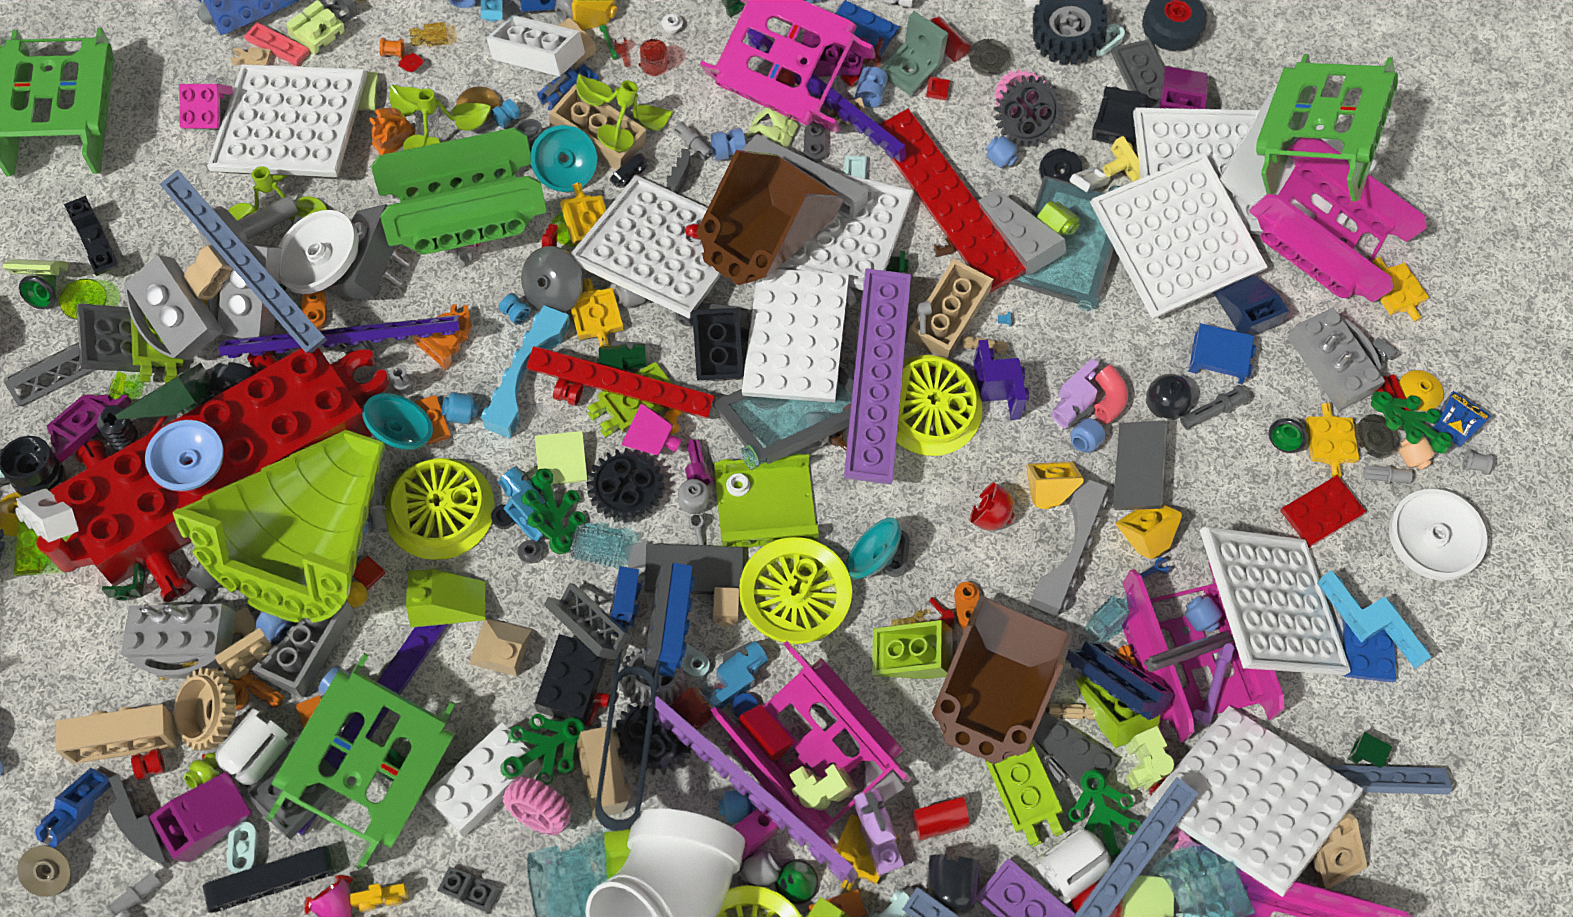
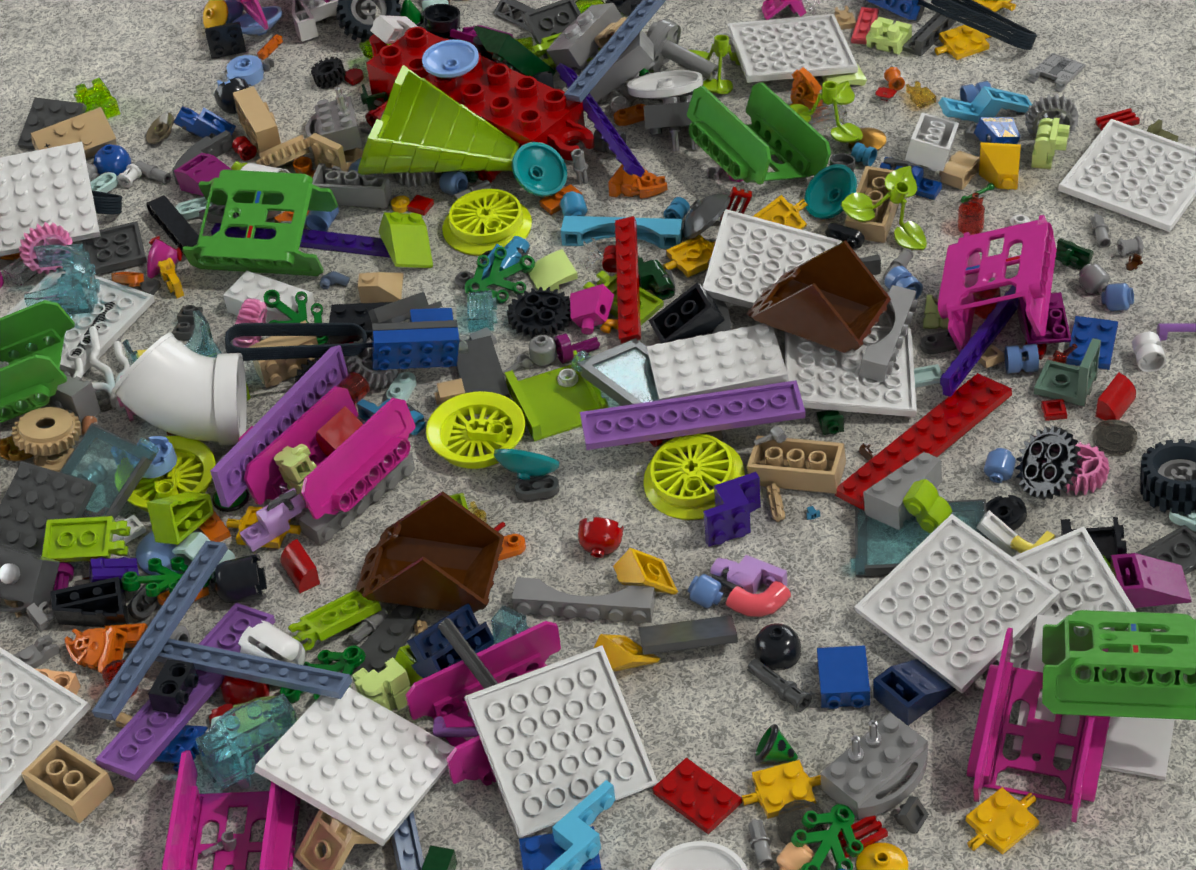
camera: 85 degrees right, 20 degrees down
(26, 624) = (328, 72): none -> black tyre
(35, 758) = (224, 94): none -> black cylinder
(57, 600) = (354, 76): none -> red tile
(463, 697) = (332, 278): none -> sand blue arm

